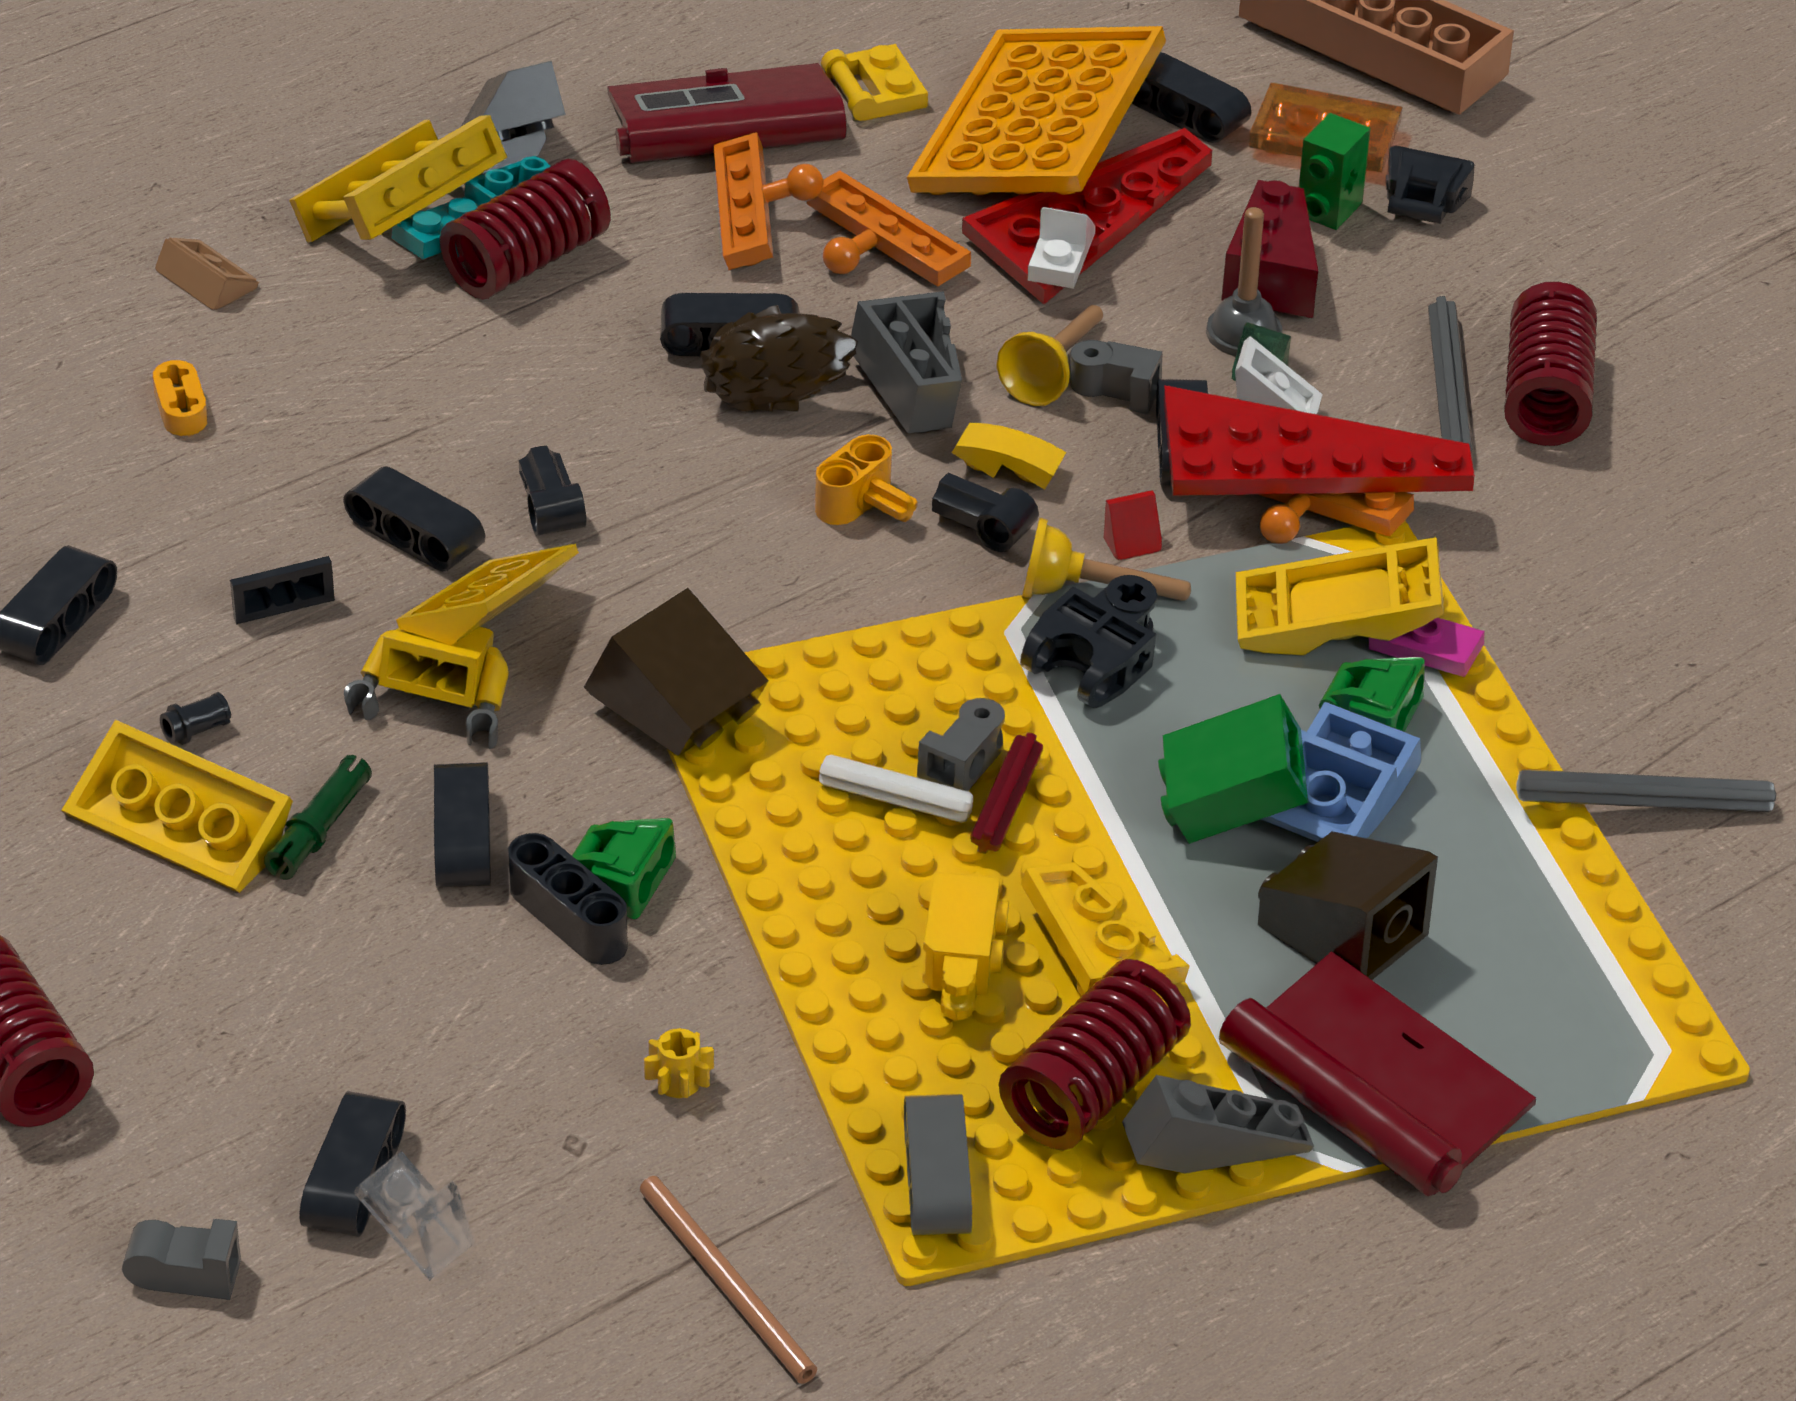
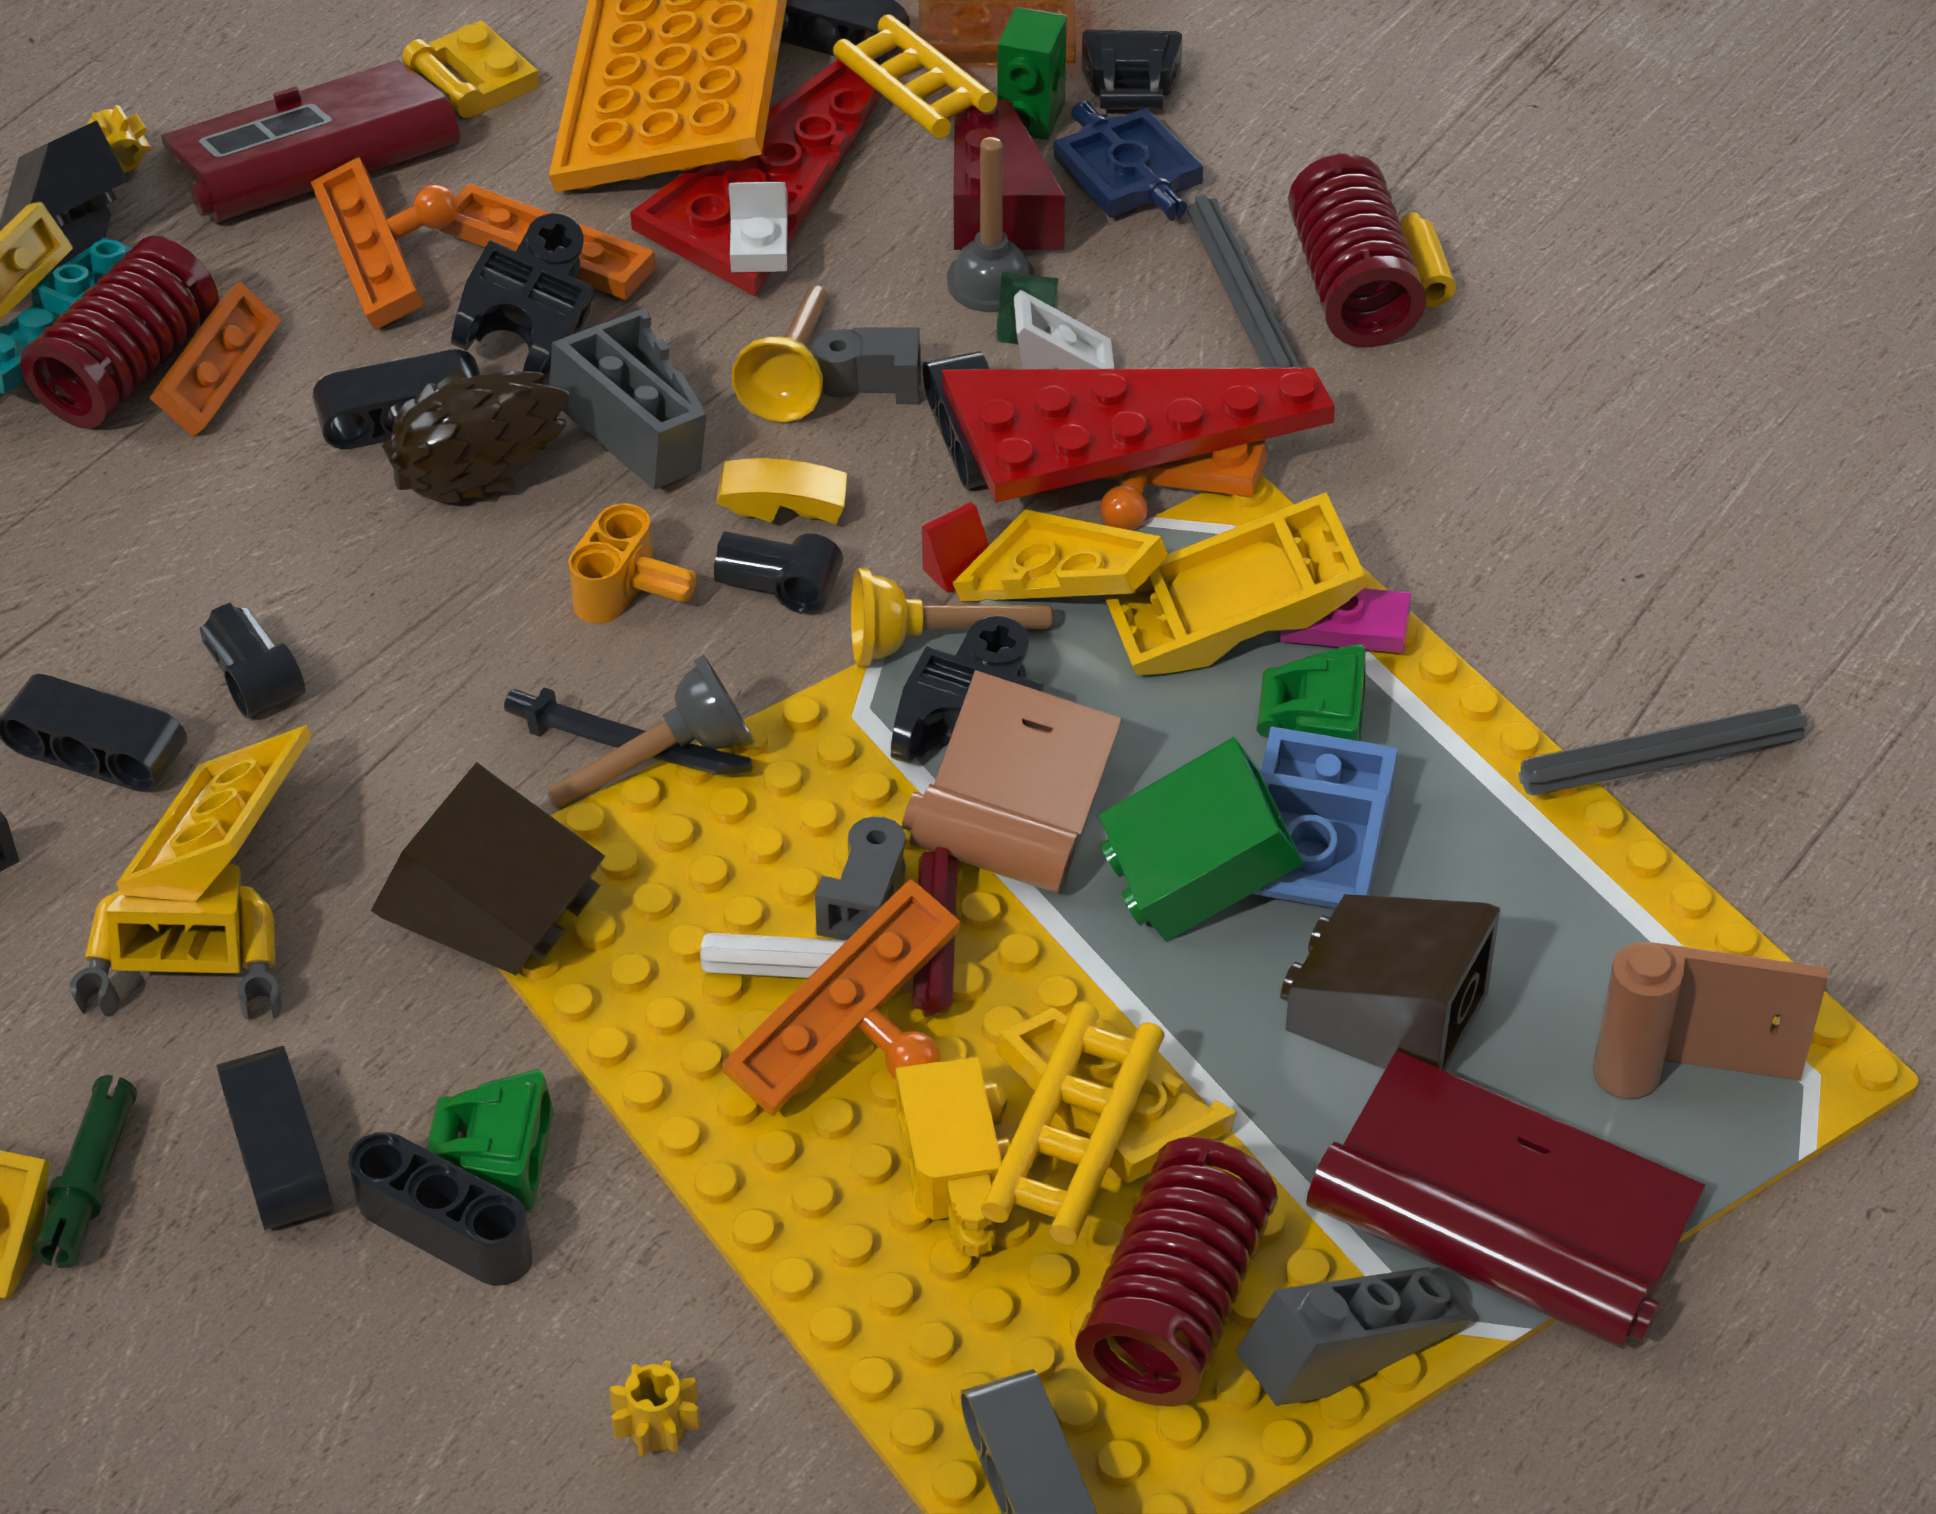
camera: 15 degrees left, 5 degrees up
(573, 81) = (124, 136): none -> yellow gear
(595, 265) = (215, 359): none -> orange plate
(766, 577) = (545, 712): none -> black sword
(854, 260) = (528, 291): none -> black piece
(882, 599) = (701, 714): none -> piece
(917, 820) = (847, 998): none -> orange plate
(1057, 963) = (1091, 1154): none -> yellow bar
(1104, 707) = (1015, 782): none -> nougat door
(1209, 548) = (1060, 558): none -> yellow wing
(1220, 169) = (911, 95): none -> yellow bar
(1392, 259) = (1128, 161): none -> dark blue plate
(1576, 971) = (1705, 1013): none -> nougat door
(1613, 386) = (1429, 259): none -> yellow cylinder

